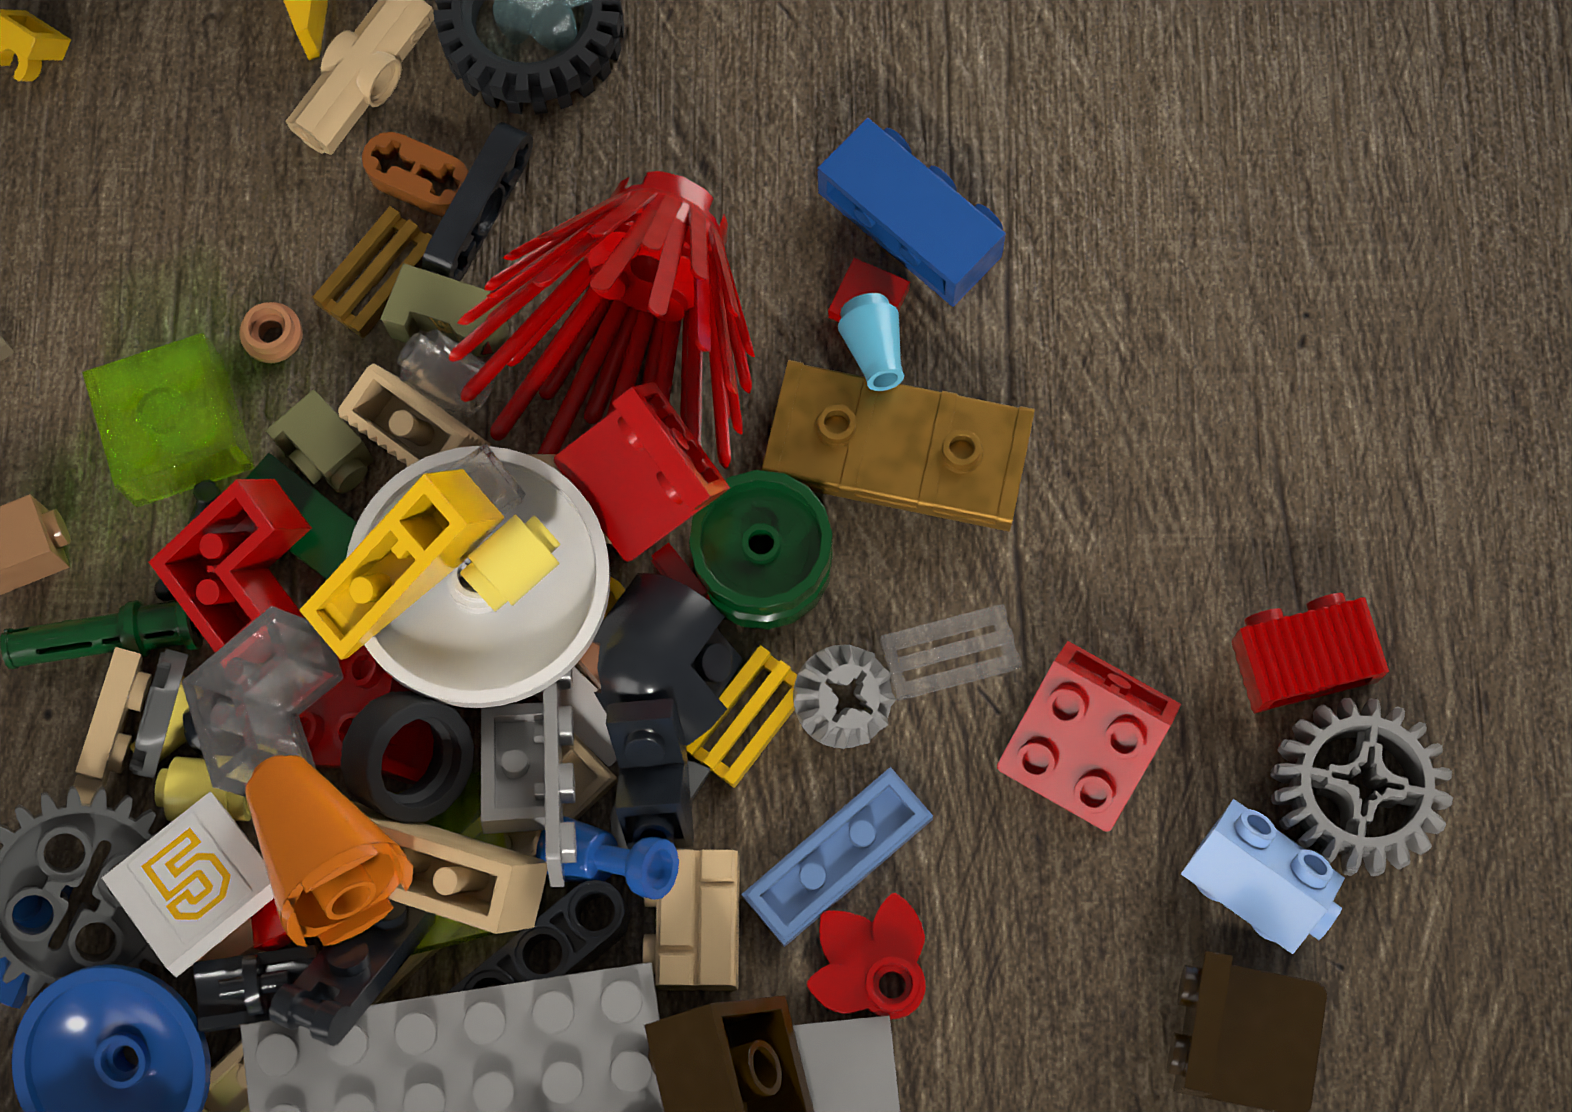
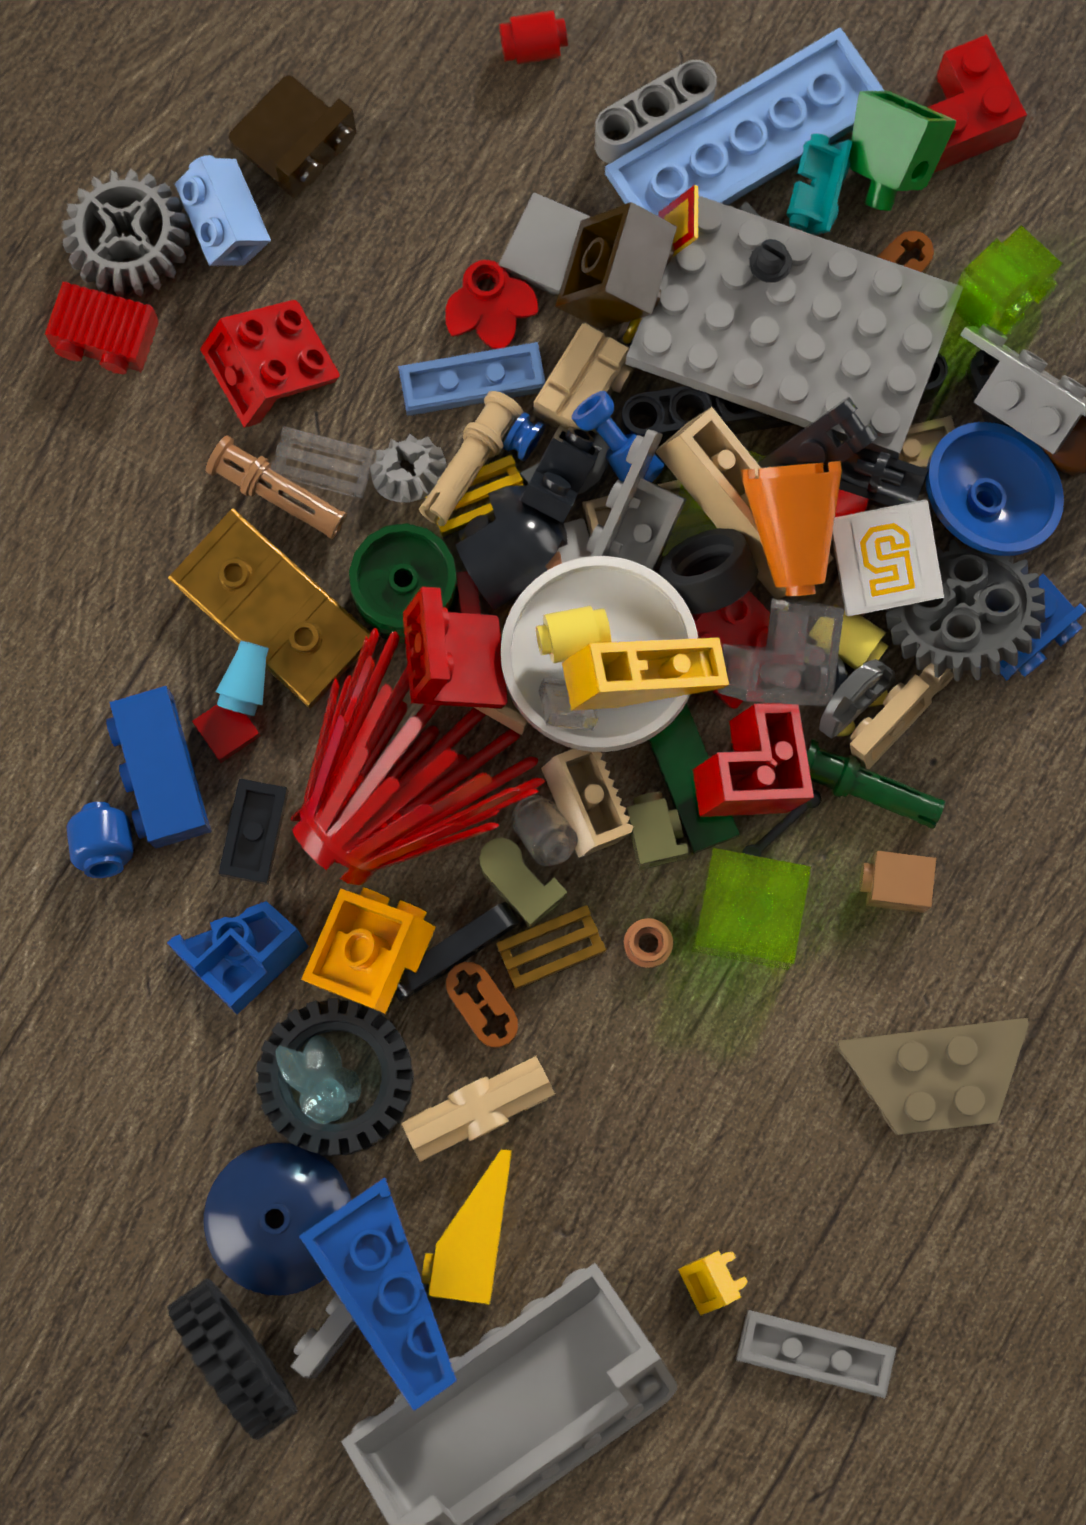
camera: 155 degrees left, 5 degrees up
(561, 139) = (368, 948): none -> light orange plate
(706, 84) = (242, 953): none -> blue slope
(730, 814) = (524, 436): none -> blue bush
(768, 206) = (253, 831): none -> black plate
(775, 776) = (481, 441): none -> tan pin
(925, 104) = (100, 840): none -> blue head
(1014, 585) = (252, 480): none -> medium nougat pin

